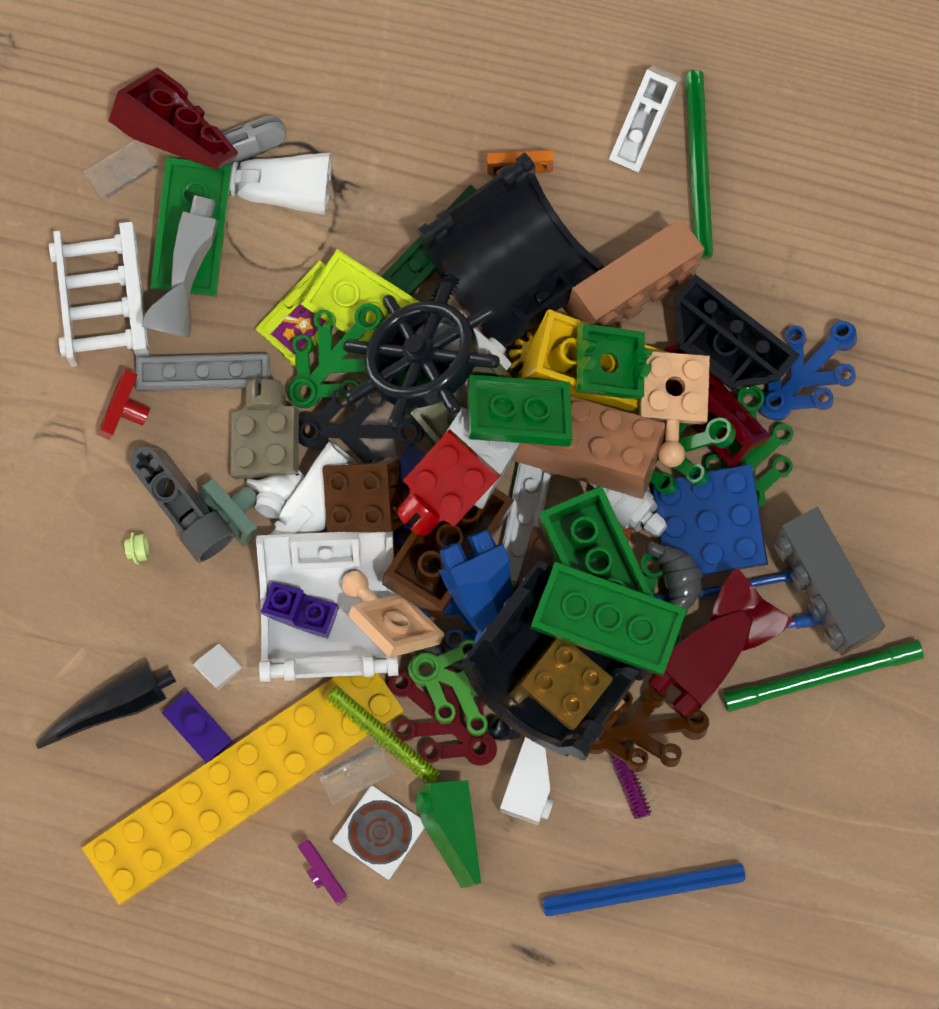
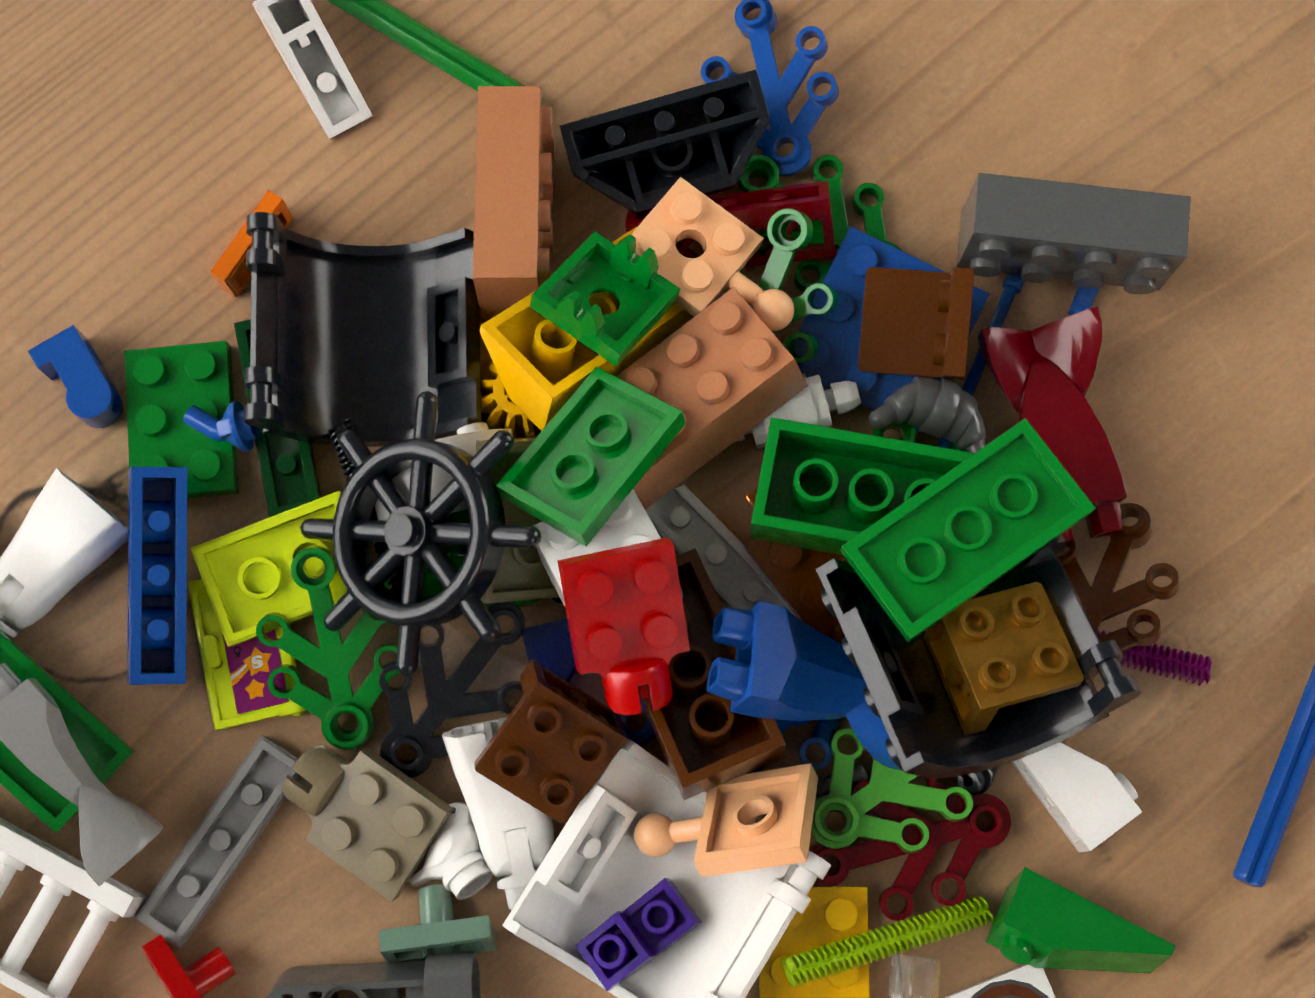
camera: 55 degrees left, 0 degrees up
(311, 242) = (157, 575): none -> blue brick
(384, 137) = (88, 385): none -> blue leg
(400, 195) = (160, 391): none -> green plate
(409, 221) = (229, 428): none -> blue plate
(718, 533) = (916, 322): none -> reddish brown bracket
(893, 656) = (1137, 428): green piece -> none

